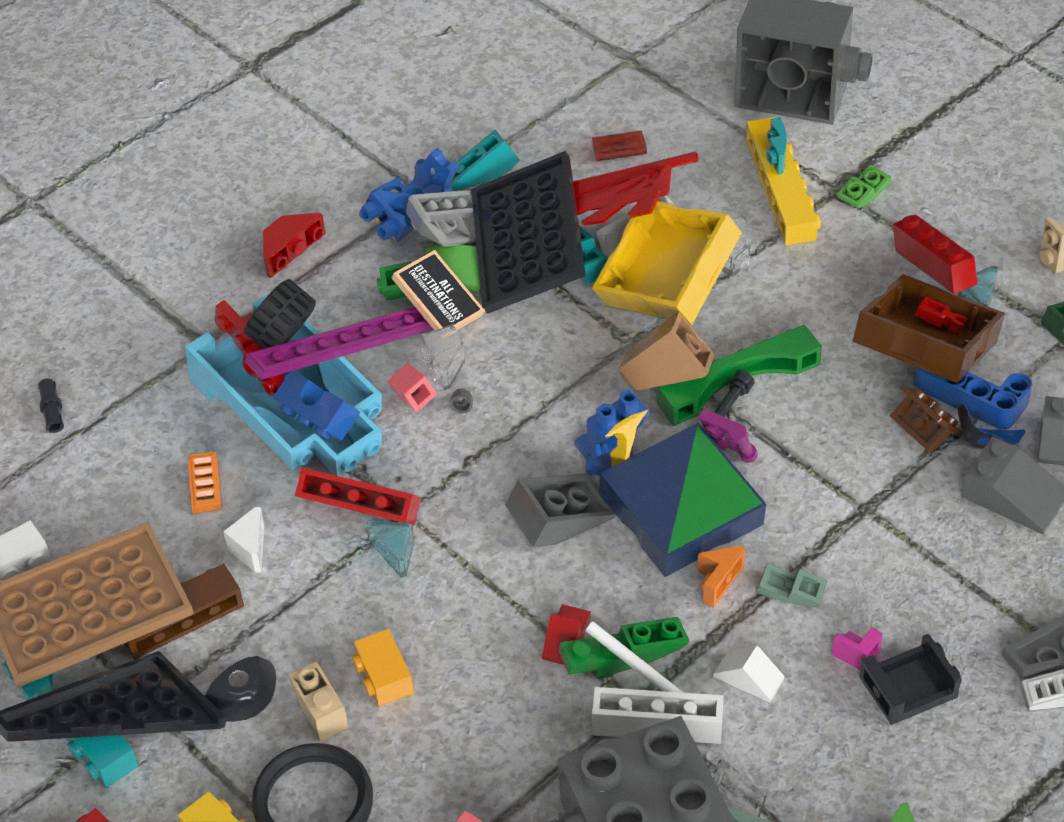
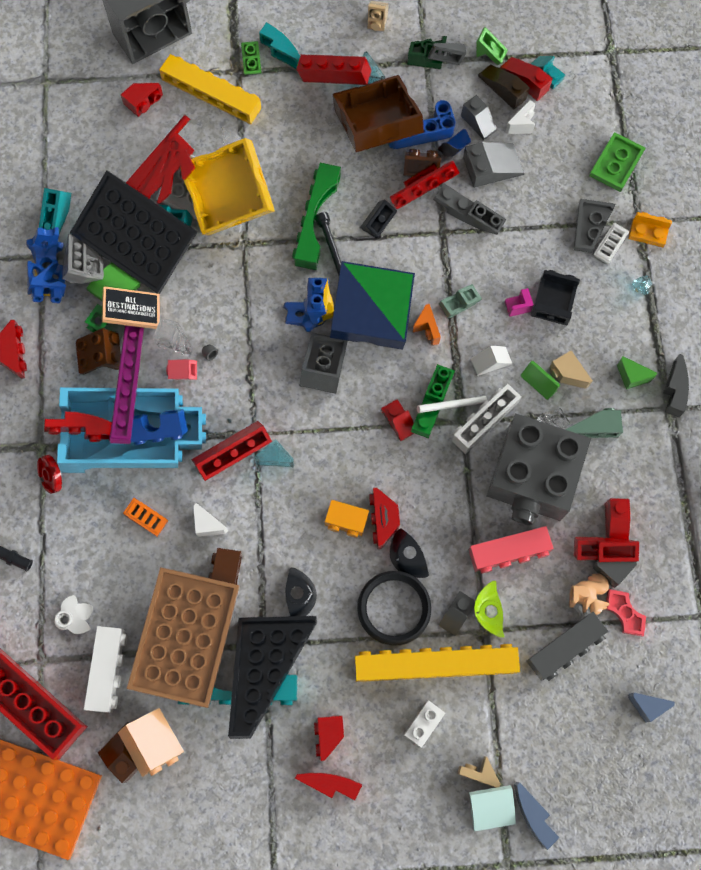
camera: 55 degrees left, 25 degrees up
(29, 503) = (76, 614): none -> white plate
(172, 363) = (49, 470): none -> red tile
(280, 315) = (93, 401): black tyre -> none
(318, 701) = (341, 563): tan slope -> none
(361, 304) = (98, 350): none -> reddish brown bracket
(387, 777) = (416, 566): none -> black piece
(418, 707) = (384, 517): none -> red slope
(619, 145) = (107, 139): clear red plate -> none
(667, 356) = (284, 239): medium nougat slope -> none
(701, 135) = (141, 96): none -> red slope
(728, 435) = (352, 254): magenta plate -> none
(777, 744) = (540, 380): none -> bright green slope
(778, 142) = (193, 67): teal slope -> none
(806, 434) = (378, 218): none -> black slope
(824, 763) = (570, 371): none -> tan slope
(894, 434) = (423, 183): none -> red bracket
(908, 190) = (279, 44): none -> teal slope
(919, 506) = (470, 212): none -> dark grey slope
(938, 314) = (368, 101): red plate -> none
(1042, 763) = (642, 284): none -> clear light blue tile

